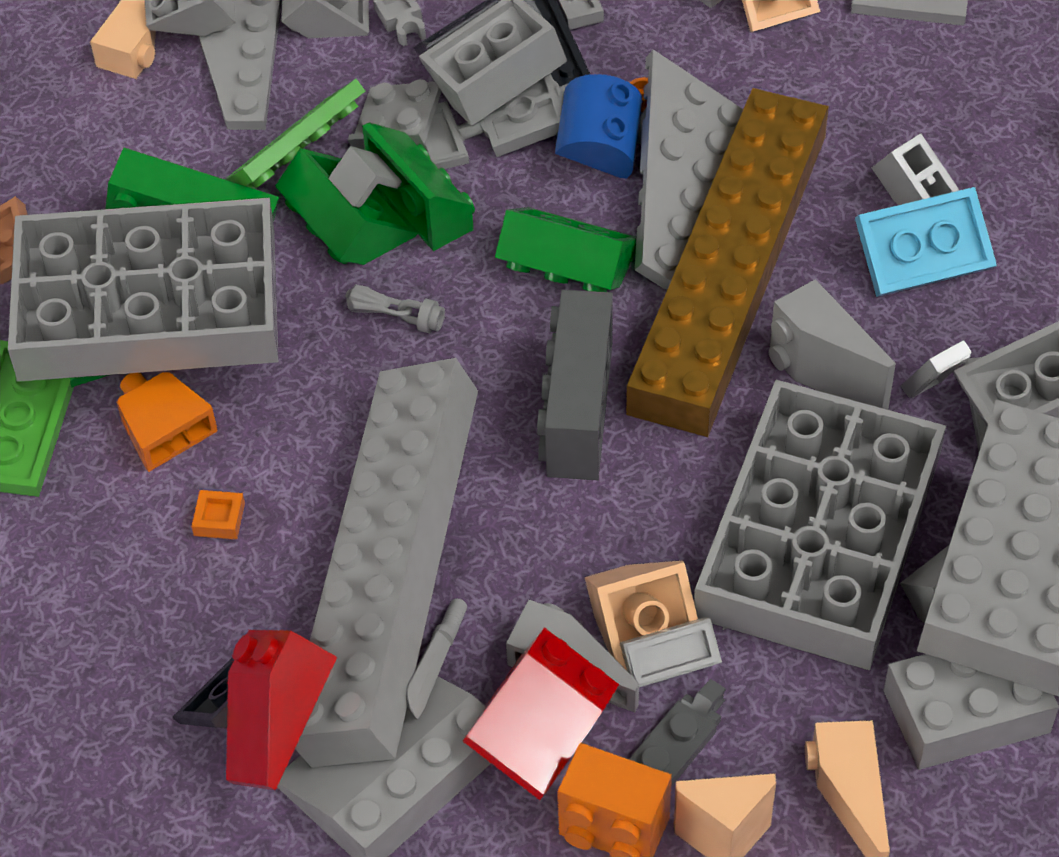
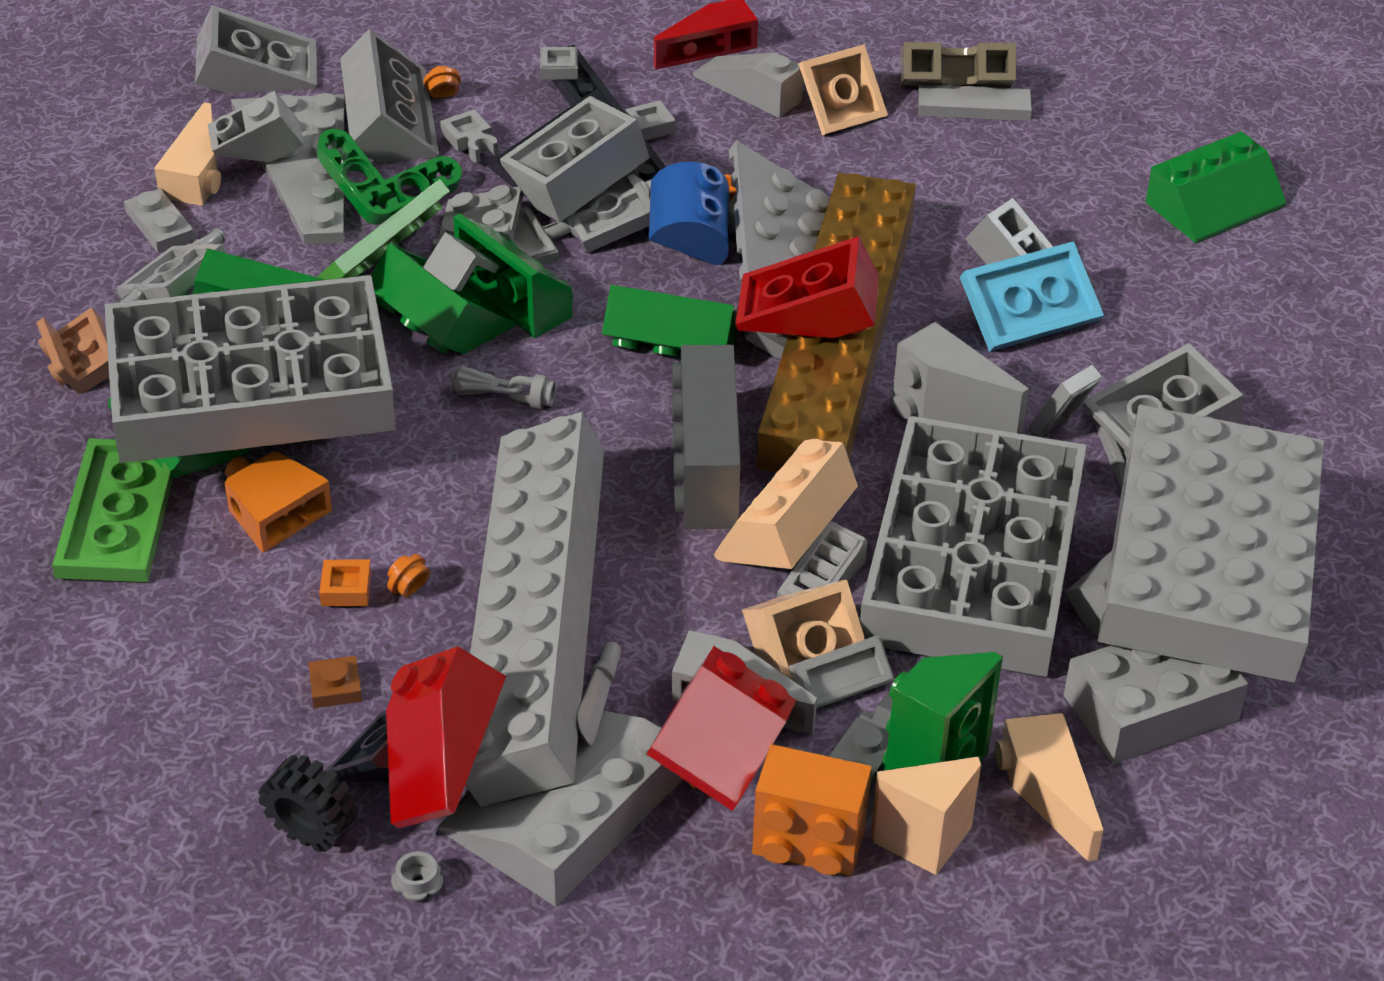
camera: 10 degrees left, 10 degrees down
(92, 95) = (159, 220): none -> light grey plate
(92, 161) = (172, 271): none -> light grey plate
(152, 753) = (308, 802): none -> black tyre
(196, 619) = (334, 681): none -> dark orange plate
(242, 822) = (417, 865): none -> light grey plate
(276, 511) = (407, 575): none -> orange plate
(300, 73) = (375, 187): none -> green beam
(649, 470) = (792, 508): none -> light nougat slope
(686, 512) = (835, 545): none -> light grey slope
(699, 237) = (812, 294): none -> red slope
(749, 724) = (942, 710): none -> green slope

